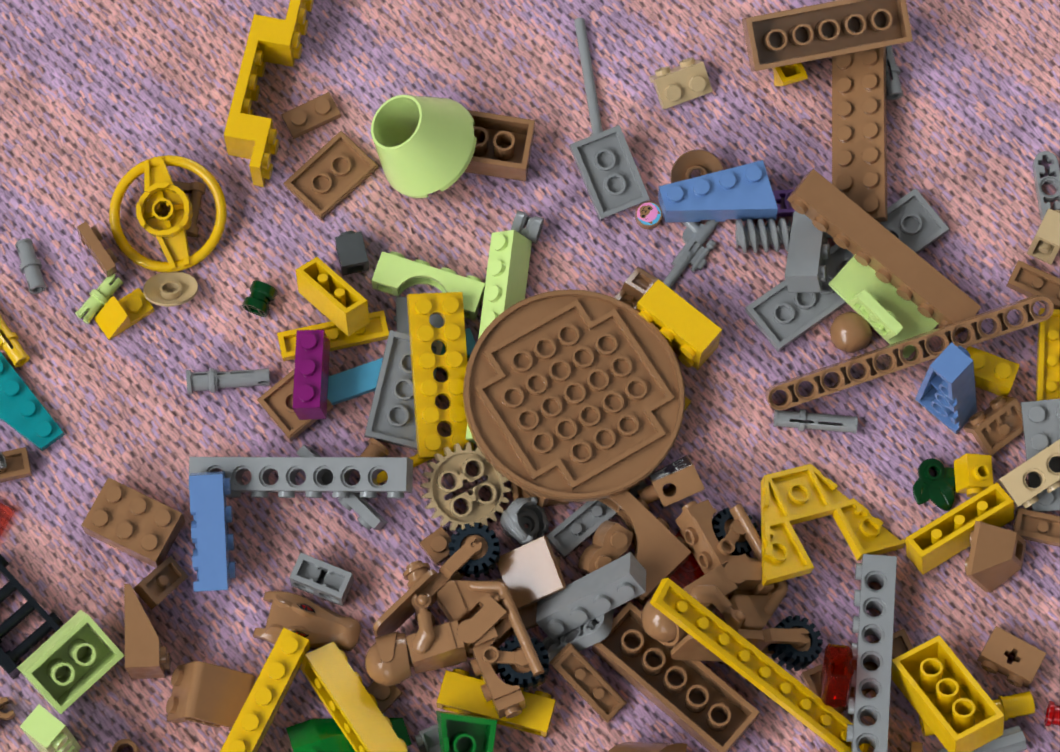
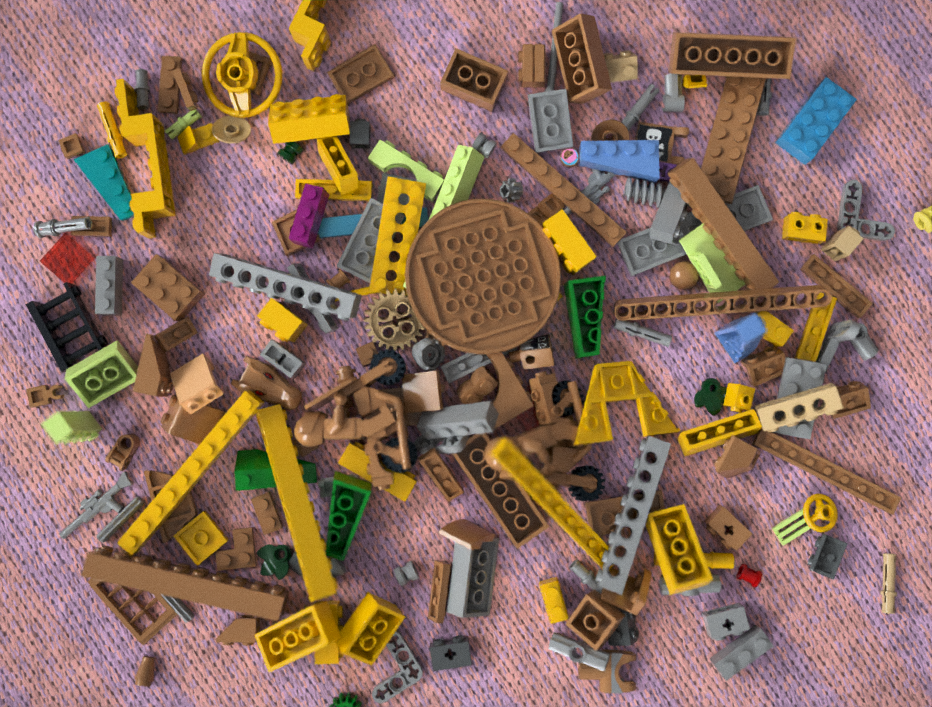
camera: 15 degrees right, 15 degrees up
(47, 541) = (109, 286): none -> light grey brick
(49, 319) = (146, 131): none -> yellow bracket
(67, 251) = (168, 89): none -> medium nougat plate
(208, 640) = (195, 384): none -> light nougat panel
(211, 531) = (215, 310): medium blue wedge -> none
(215, 380) = (247, 201): light grey pin -> none
(278, 247) = (309, 119): none -> yellow brick
(308, 526) = (282, 320): none -> yellow brick
(311, 115) = (357, 27): medium nougat plate -> none
(423, 143) = (426, 67): yellowish green cone -> none
(565, 108) = (533, 65): none -> medium nougat brick
(581, 275) = (511, 190): none -> light grey gear
(629, 83) = (581, 59): none -> medium nougat brick
(652, 259) = (563, 190): none -> medium nougat plate
(722, 135) = (633, 115): none -> light grey axle
(728, 414) = (585, 312): none -> green wedge
(767, 103) = (673, 97): none -> light grey piece
(773, 158) = (665, 135): none -> flag
(836, 675) = (607, 517): clear red brick -> none
(967, 88) = (815, 121): none -> dark azure brick
(995, 230) = (804, 228): none -> yellow brick

